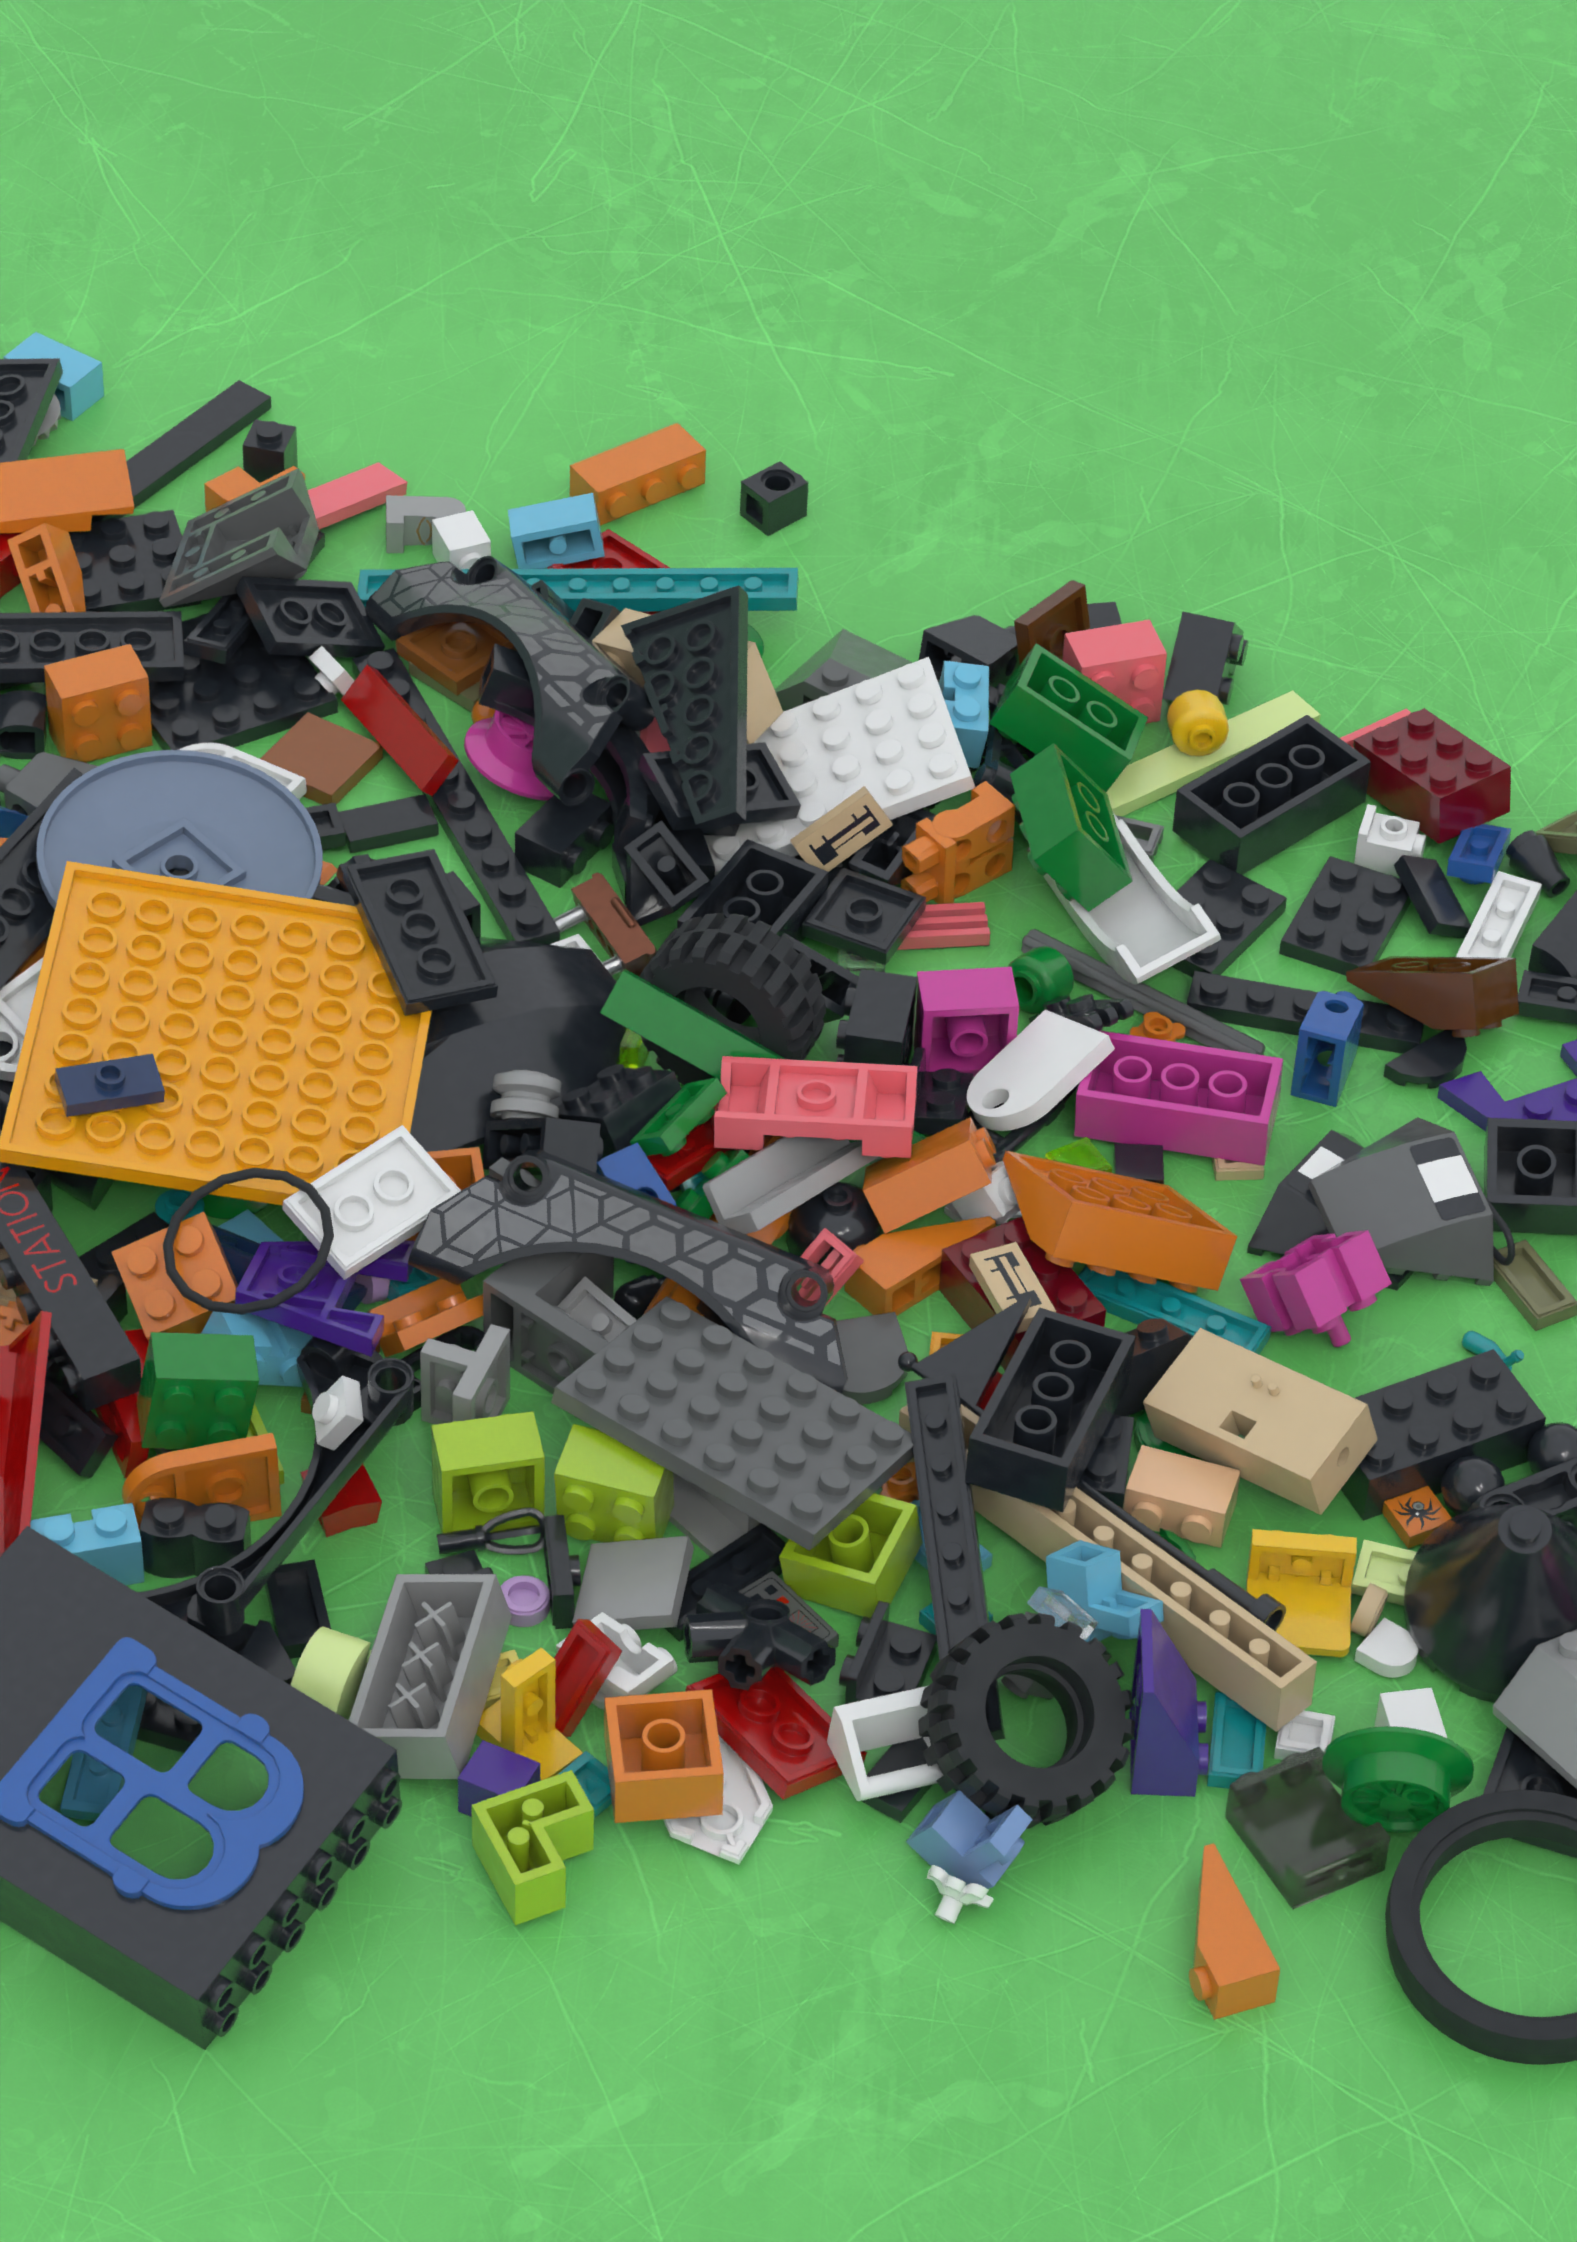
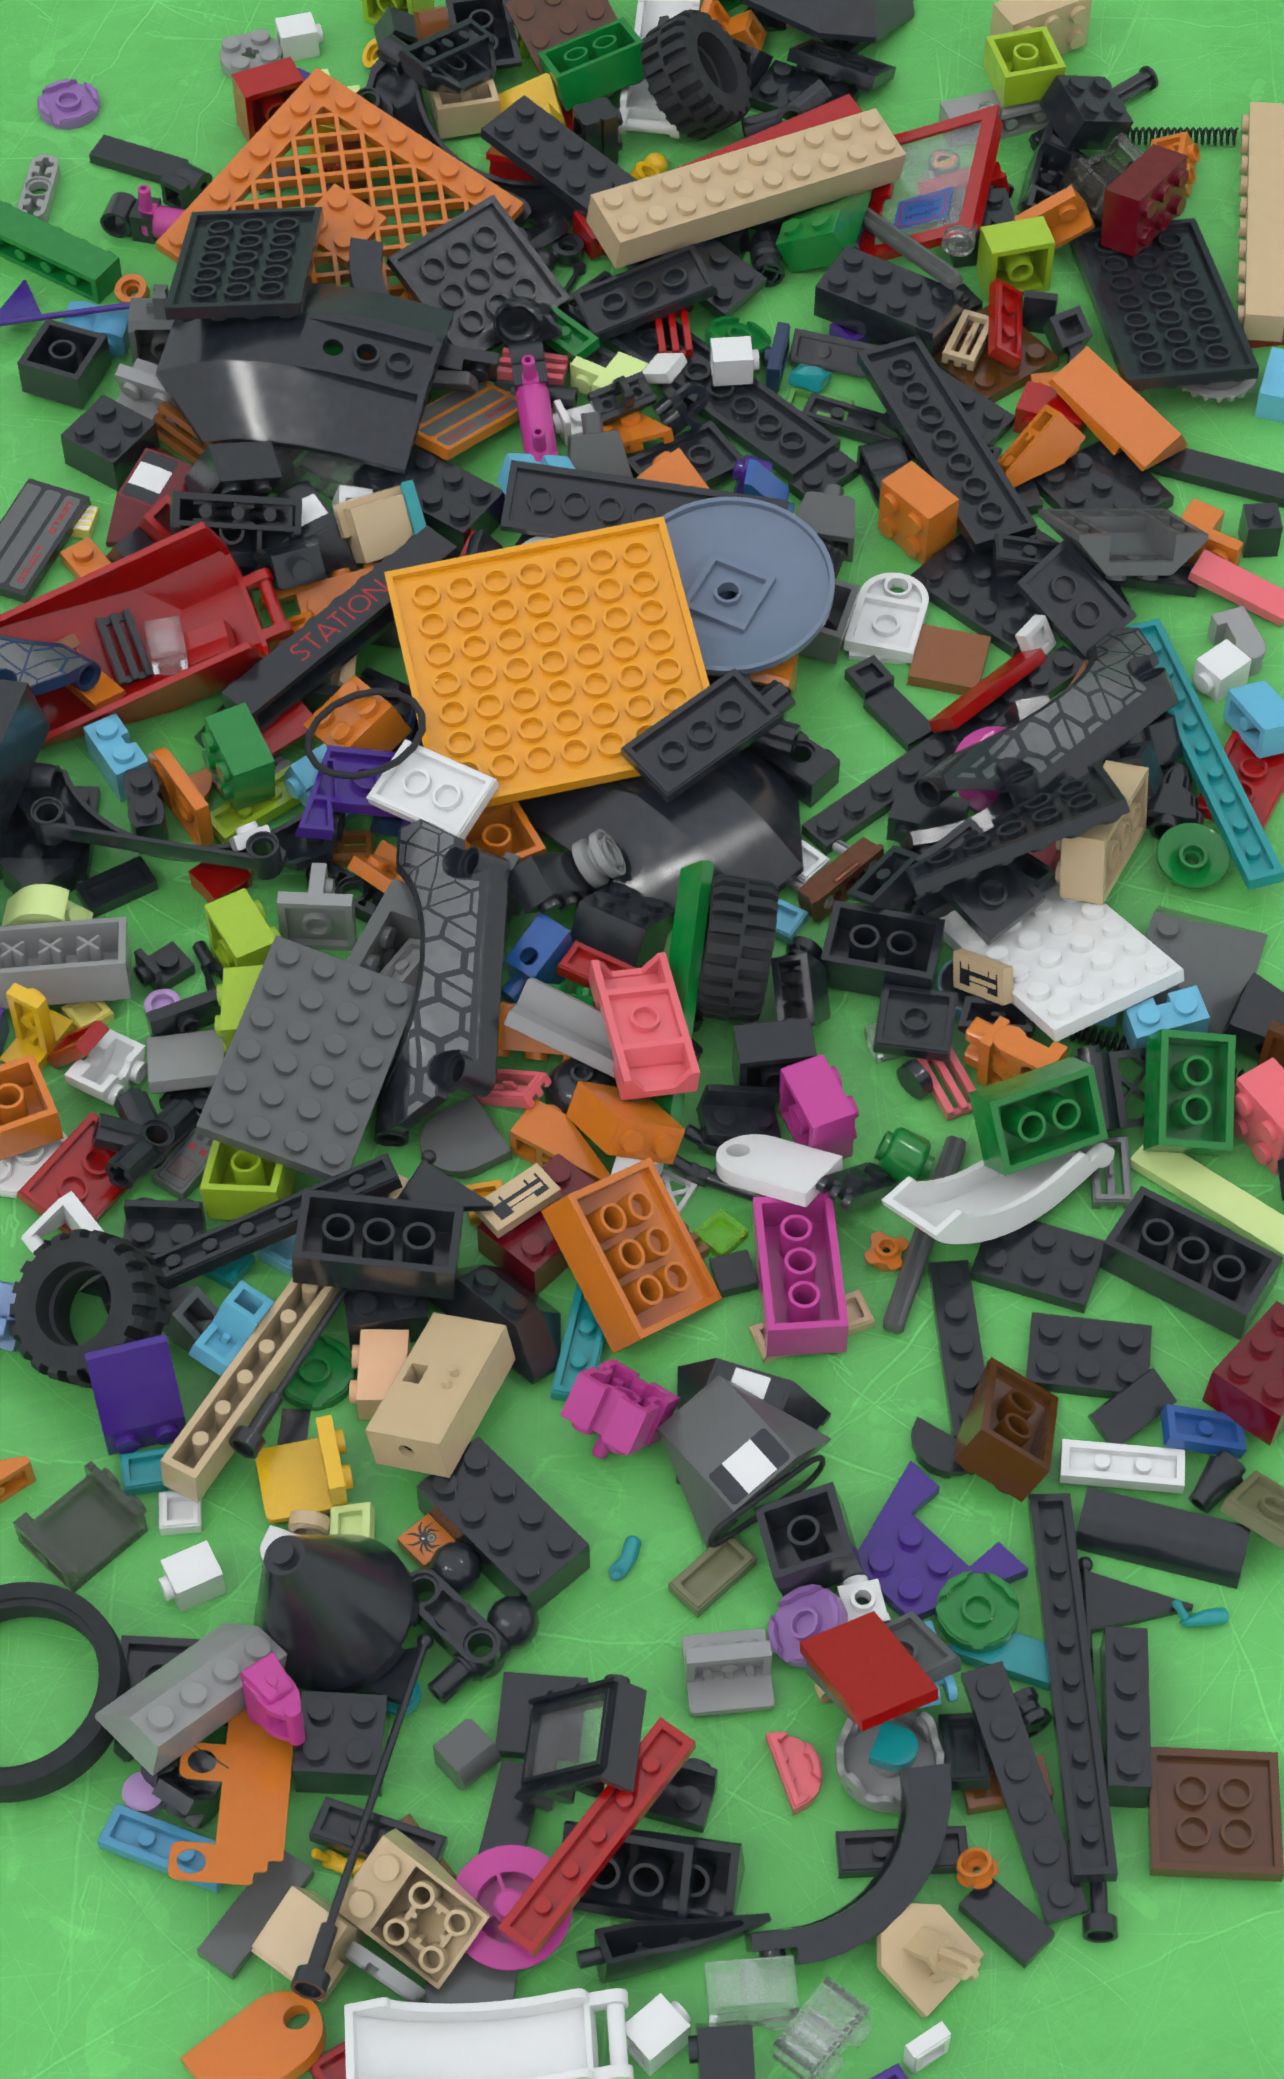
camera: 75 degrees right, 10 degrees up
(109, 1085) = (463, 609): dark blue plate -> none
(686, 1109) = (593, 946): green plate -> none
(934, 945) = (915, 1079): none -> tile
(1063, 1608) = (196, 1306): clear plate -> none
(1194, 720) = (1252, 1189): yellow head -> none
(1333, 1026) = (906, 1362): blue torso -> none
(1385, 839) = (1186, 1362): white brick -> none
(1396, 1775) = (112, 1563): green wheel -> none

